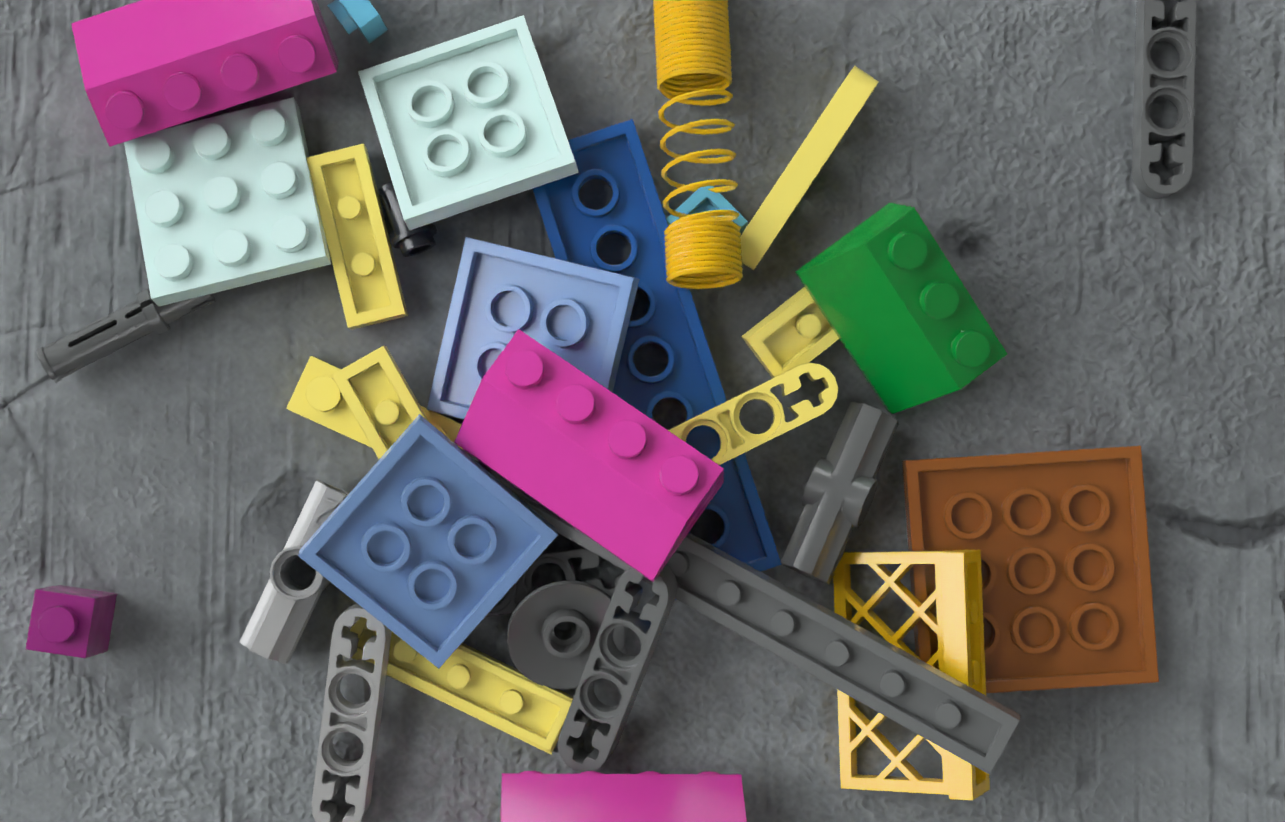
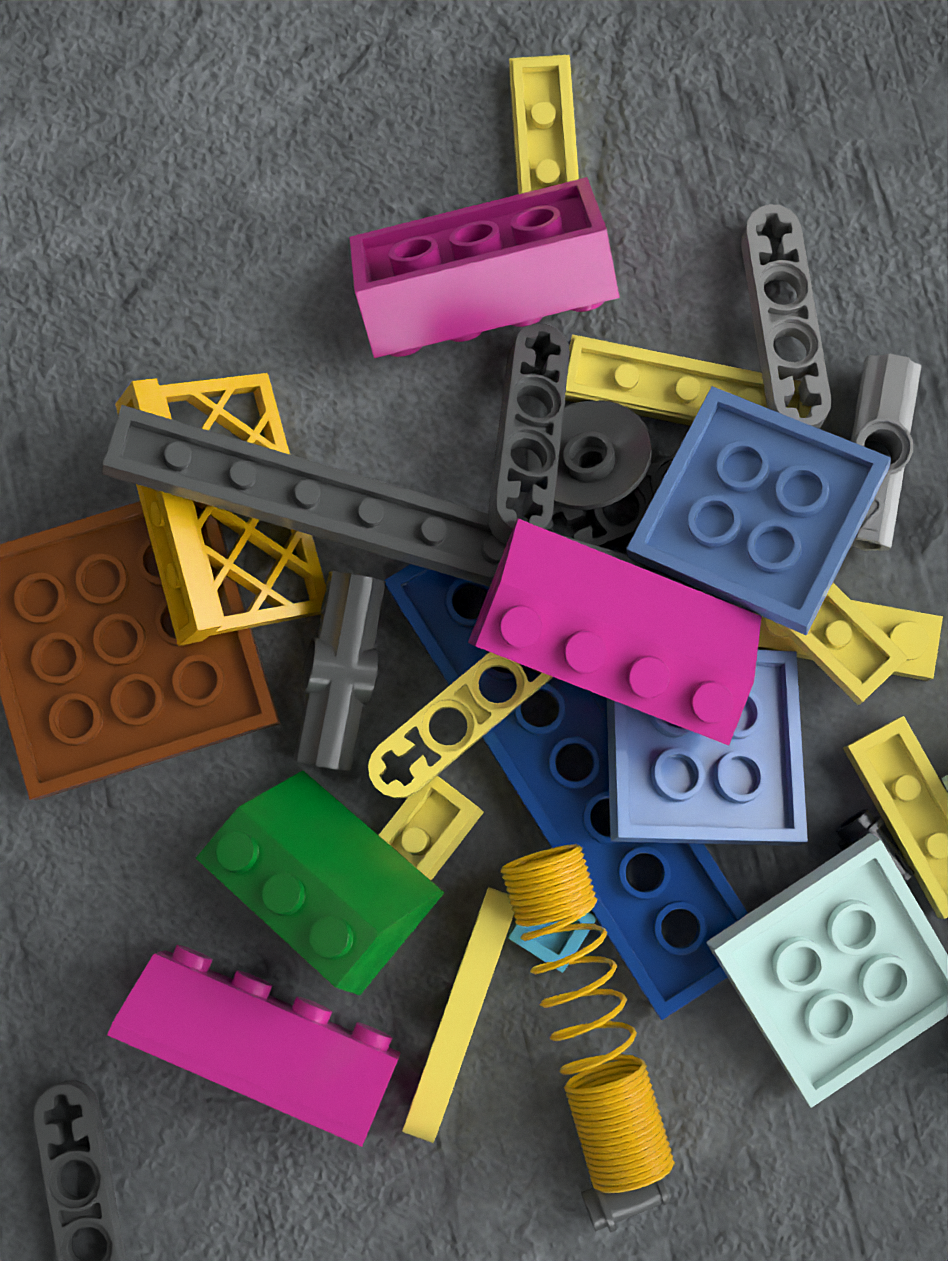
camera: 170 degrees right, 5 degrees down
(987, 183) = (258, 1042): none -> dark pink slope

